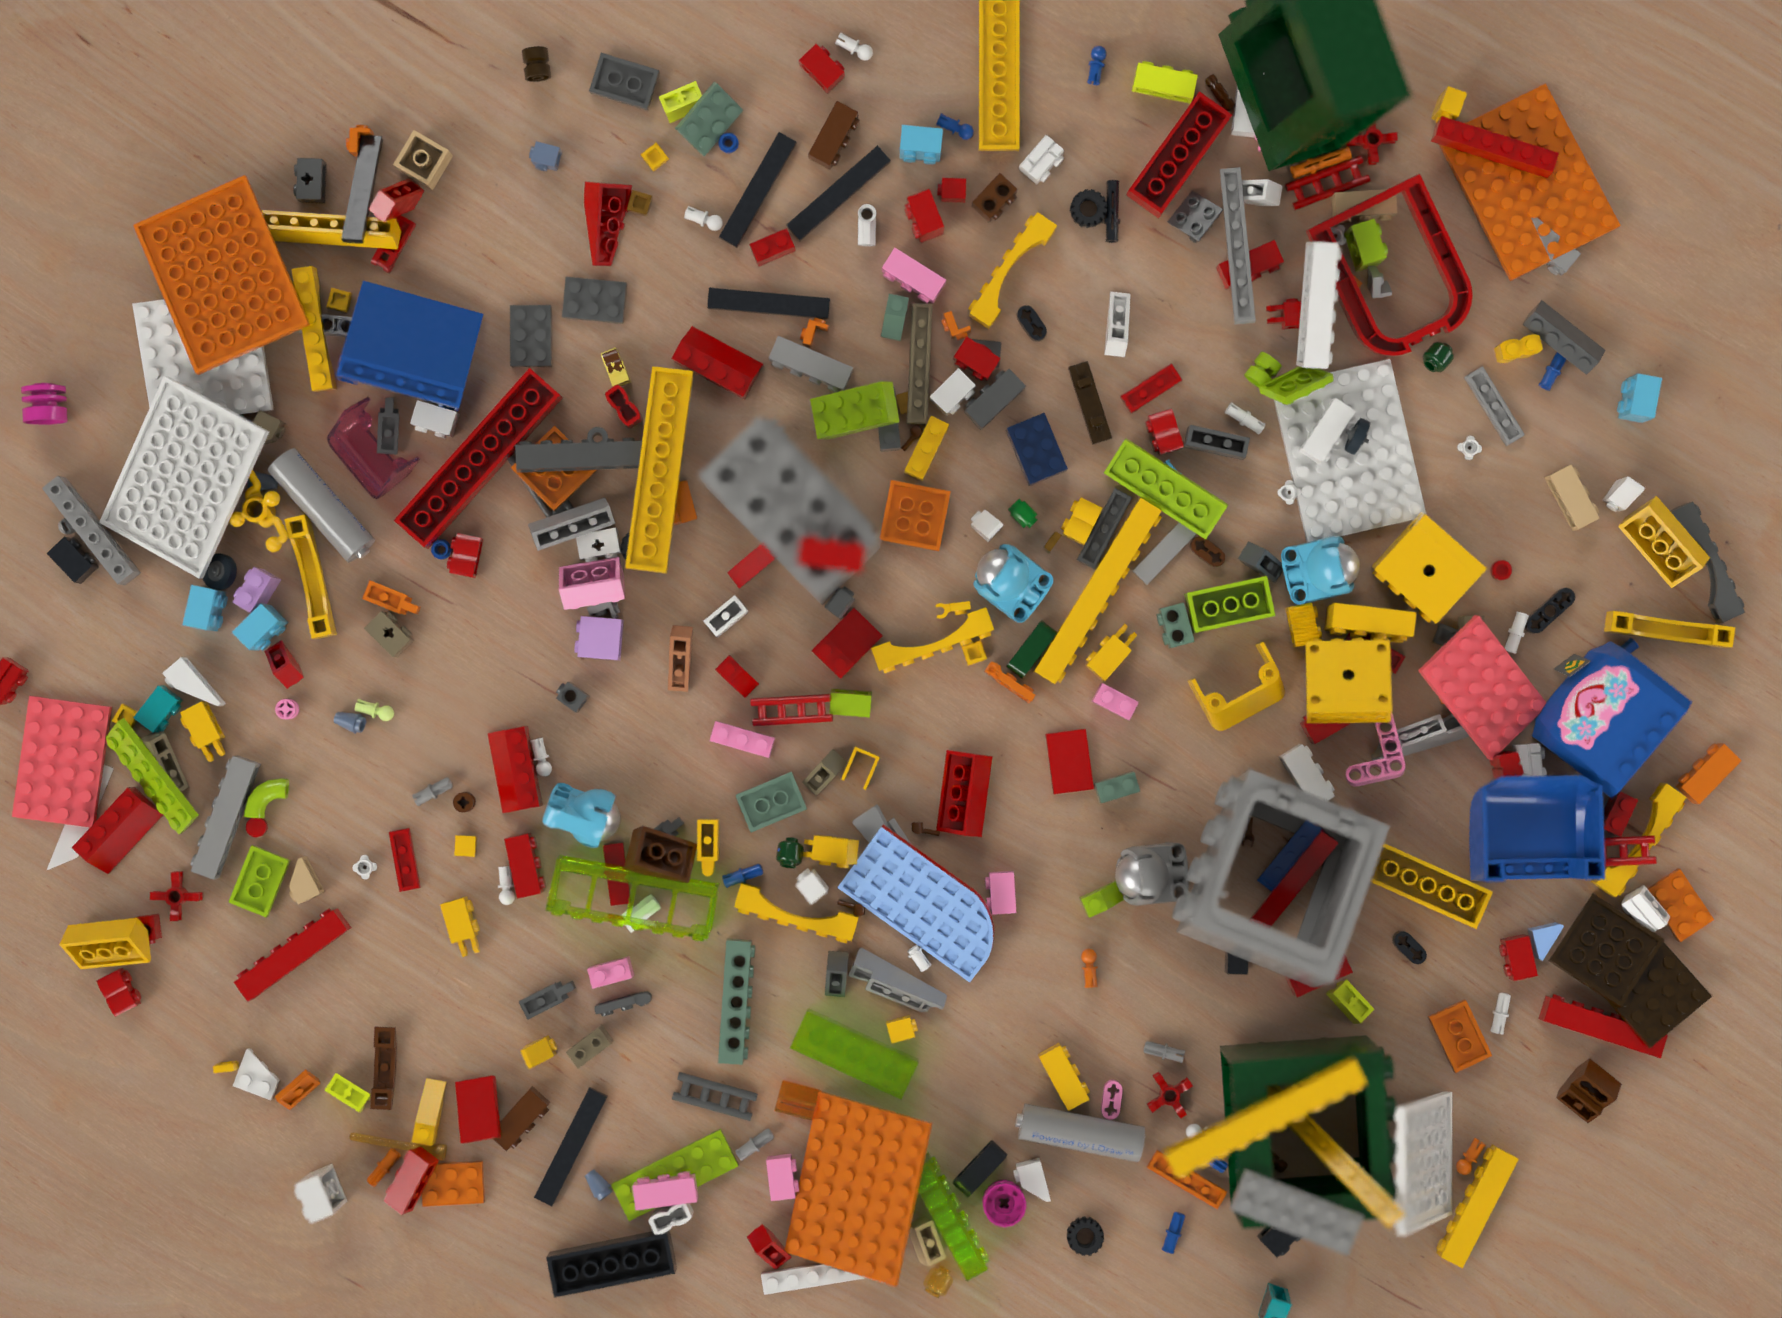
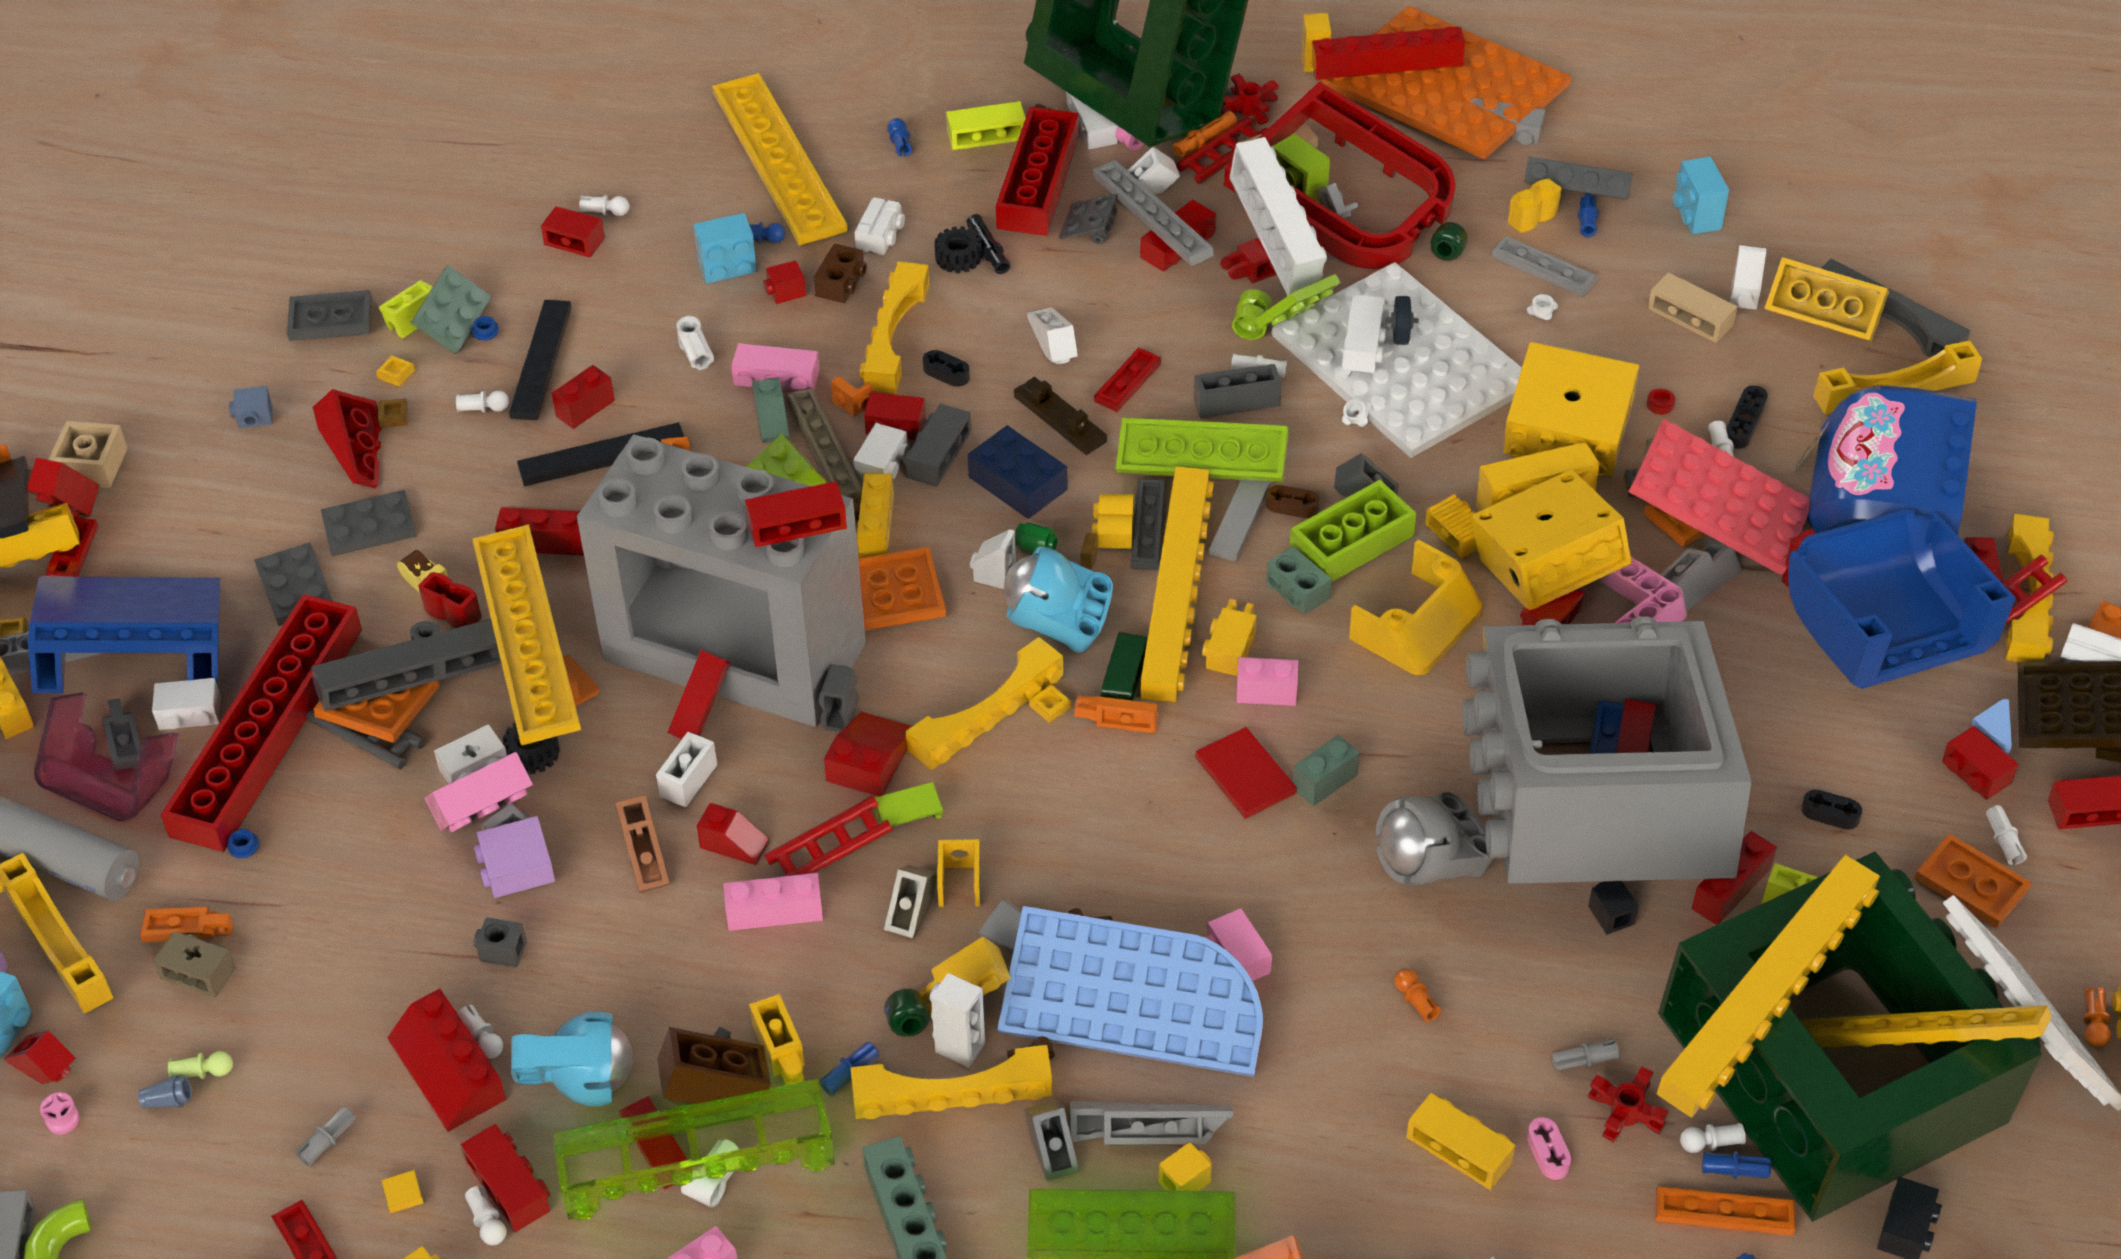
camera: 20 degrees left, 40 degrees down
(465, 555) = (280, 836): red brick -> none
(468, 802) = (380, 1139): reddish brown wheel -> none
(536, 60) = (210, 329): dark brown wheel -> none
(571, 524) = (421, 740): light grey brick -> none
(771, 802) = (849, 964): sand green plate -> none
(834, 135) = (614, 281): reddish brown brick -> none
(838, 193) = (647, 329): black tile -> none
(919, 958) = (1163, 1074): white pin -> none
(925, 216) = (762, 305): red brick -> none
(959, 608) = (999, 659): yellow plate -> none
(964, 793) = (1121, 853): red slope -> none
(1081, 1132) = (1530, 1196): light grey piece -> none
(1101, 899) = (1379, 908): lime slope -> none
(1164, 432) = (1167, 402): red brick -> none
(1296, 1212) = (1901, 1096): light grey plate -> none
(1320, 569) = (1441, 455): medium azure piece -> none
(1430, 886) = (1815, 723): yellow brick -> none
(1707, 773) = (2056, 492): orange brick -> none

